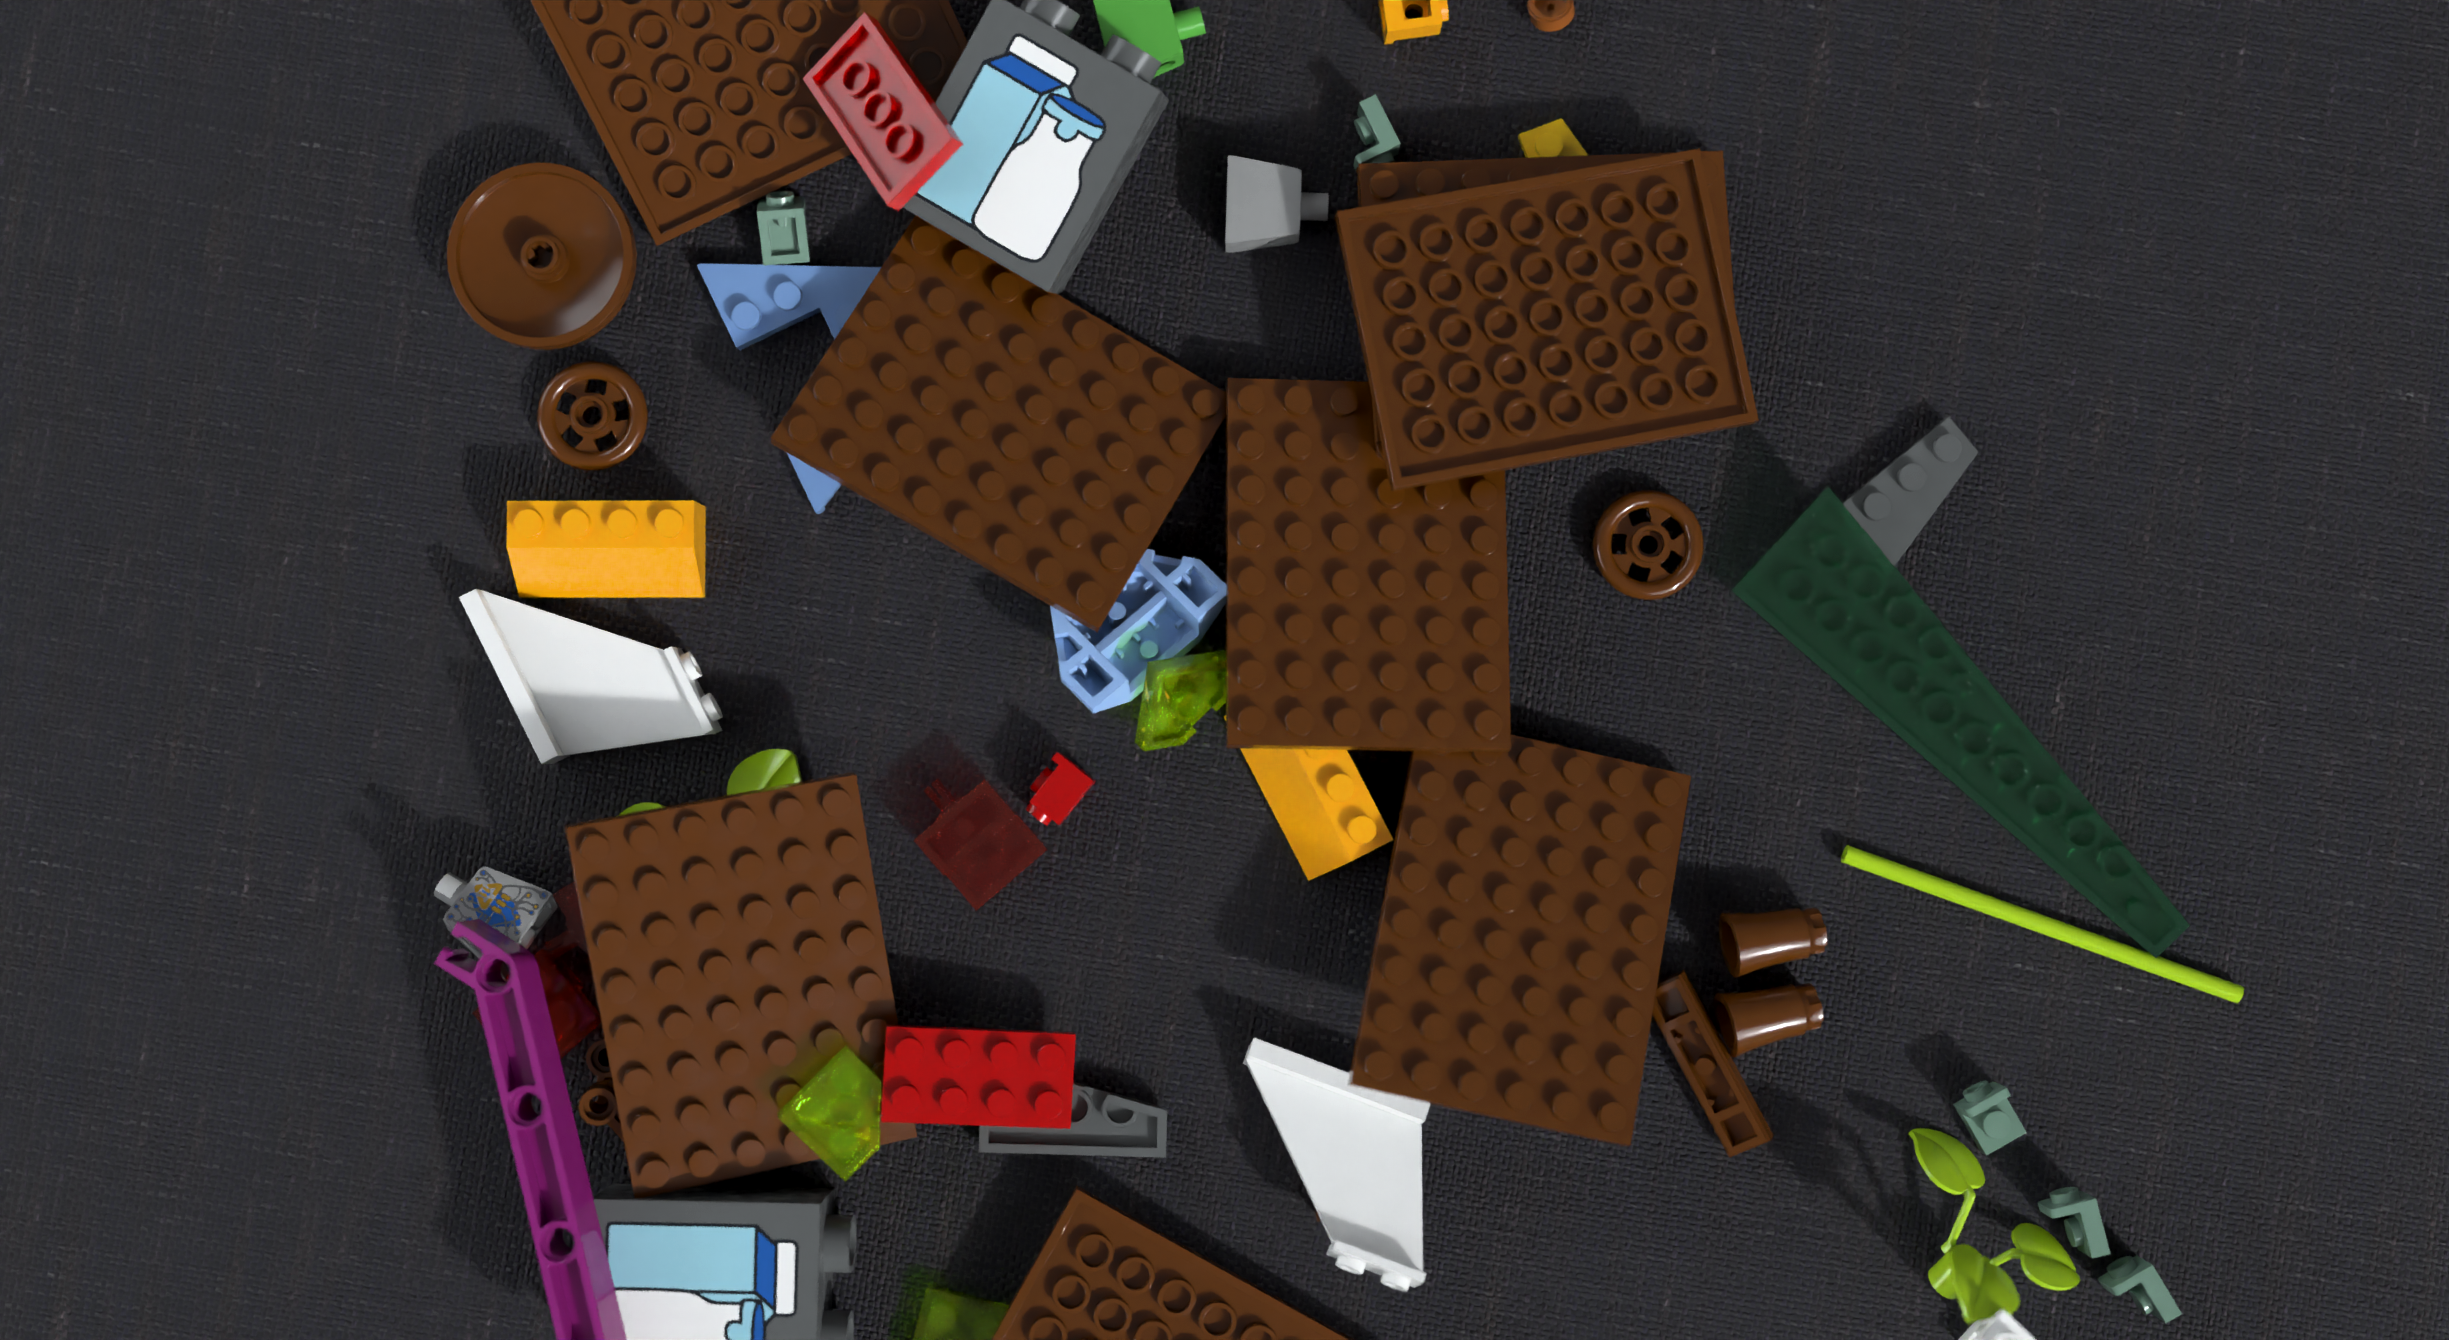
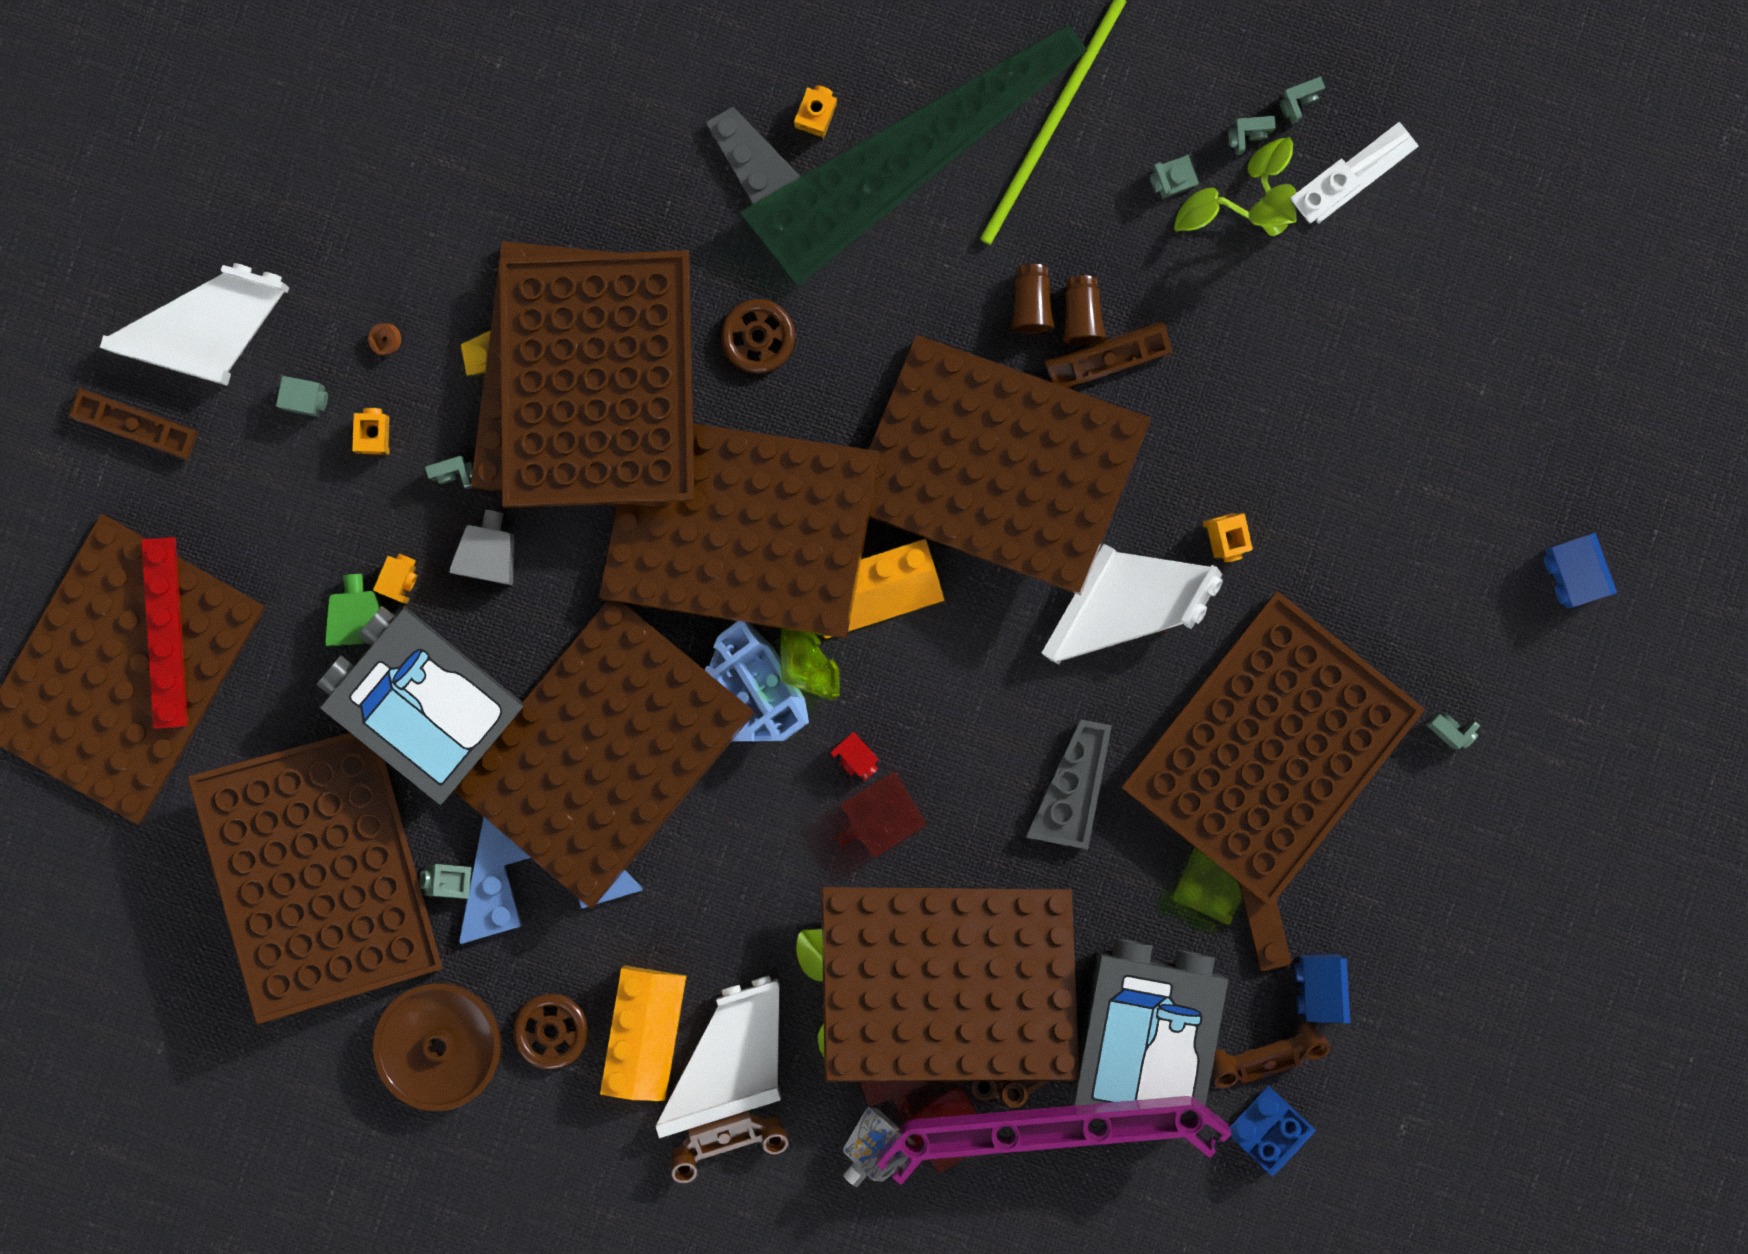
camera: 80 degrees left, 0 degrees up
(477, 691) = (725, 1136): none -> reddish brown plate
(838, 1113) = (1045, 935): clear neon green plate -> none
(882, 111) = (383, 797): plate -> none
(978, 1076) = (1037, 840): red plate -> none
(1207, 83) = (396, 578): none -> light orange brick
(1472, 1286) = (1237, 539): none -> light orange brick
(1978, 578) = (816, 122): none -> light orange brick

